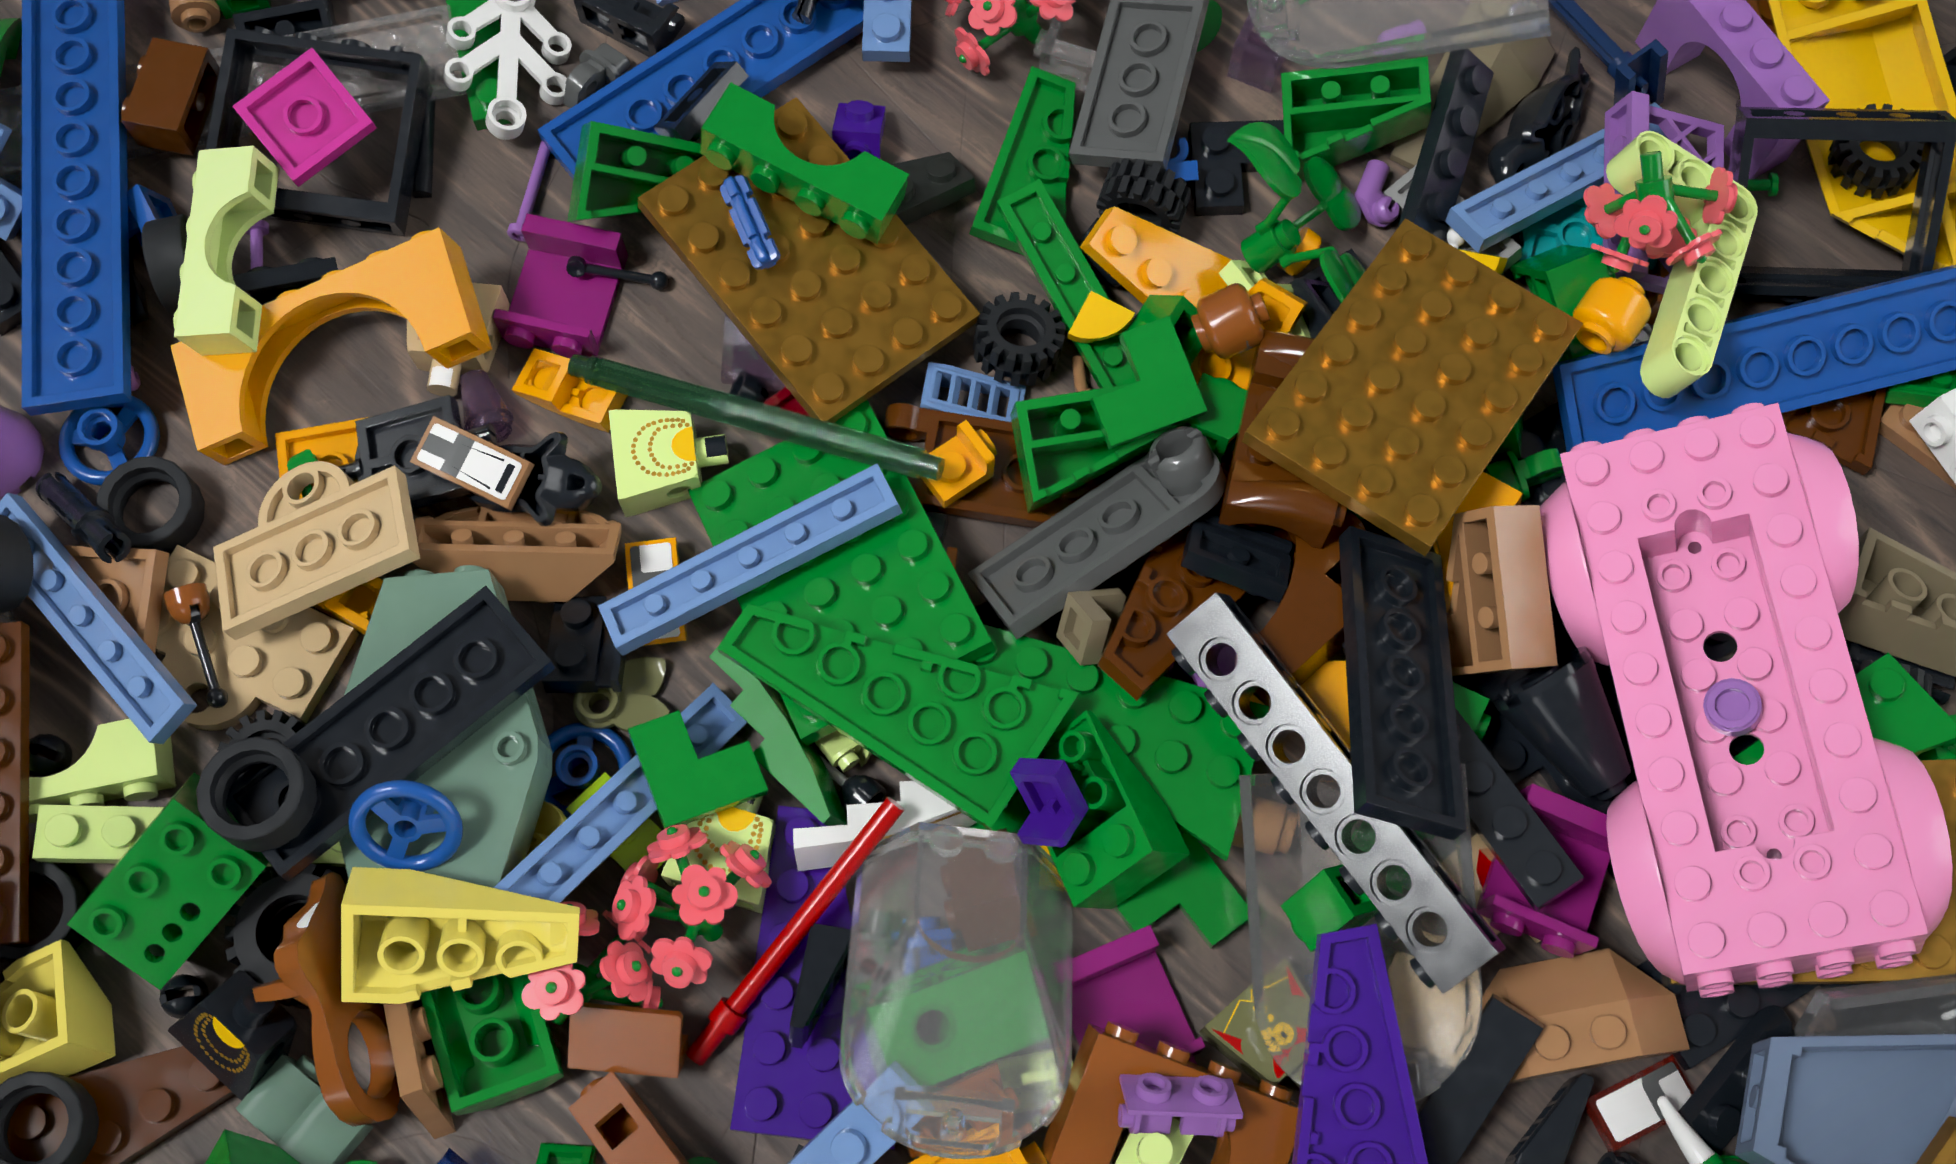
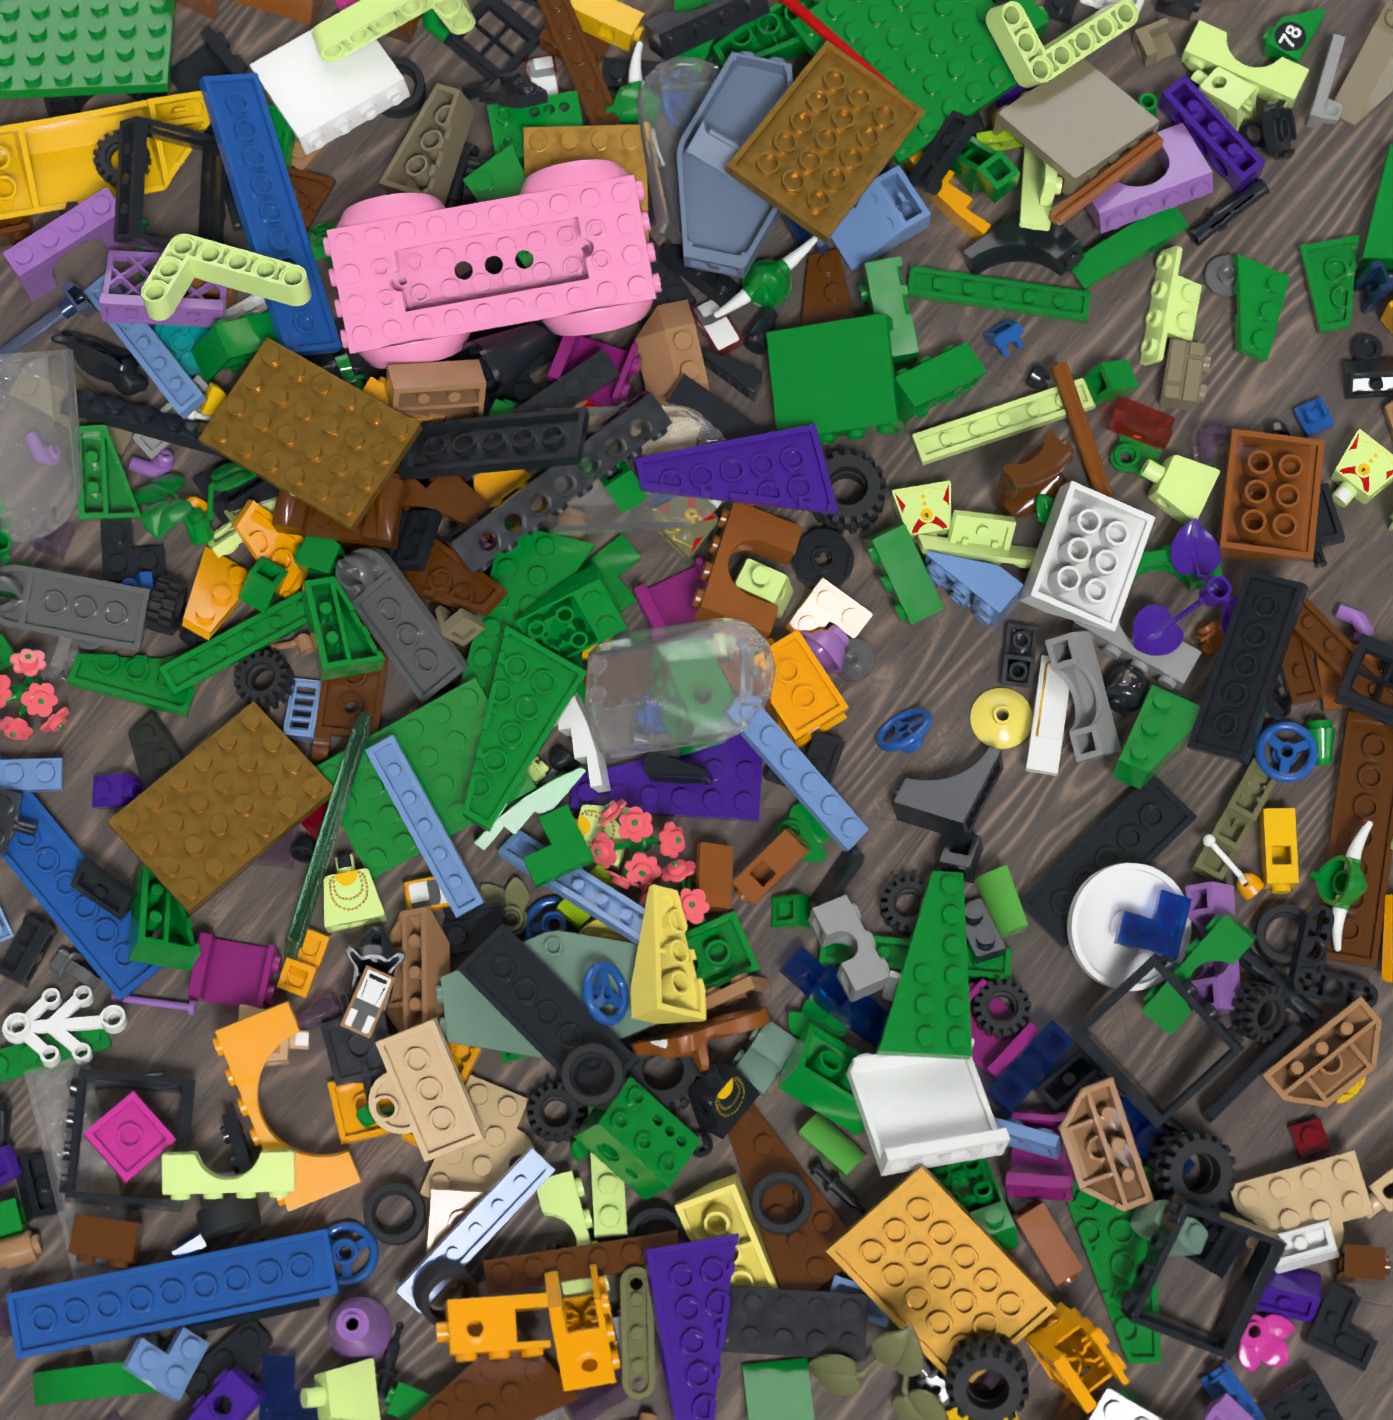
camera: 90 degrees left, 5 degrees up
(90, 523) = (414, 1237): black pin -> none
(190, 606) = (464, 1169): hinge -> none
(578, 267) = (219, 962): black hinge -> none
(731, 1012) = (694, 823): red bar -> none
(750, 222) = (206, 837): blue axle -> none
(853, 194) = (149, 841): green arch -> none
(967, 464) = (349, 703): light orange bracket -> none
(1052, 799) = (572, 637): dark purple bracket -> none
(1099, 320) = (255, 628): yellow tile -> none
(1163, 391) = (312, 581): green tile -> none
(1203, 1102) = (735, 553): medium lavender hinge -> none
(1230, 320) = (265, 543): dark orange head -> none
(1612, 314) = (256, 321): light orange head -> none
(1652, 219) = (202, 289): coral plant -> none
(1733, 707) = (502, 265): medium lavender tile -> none

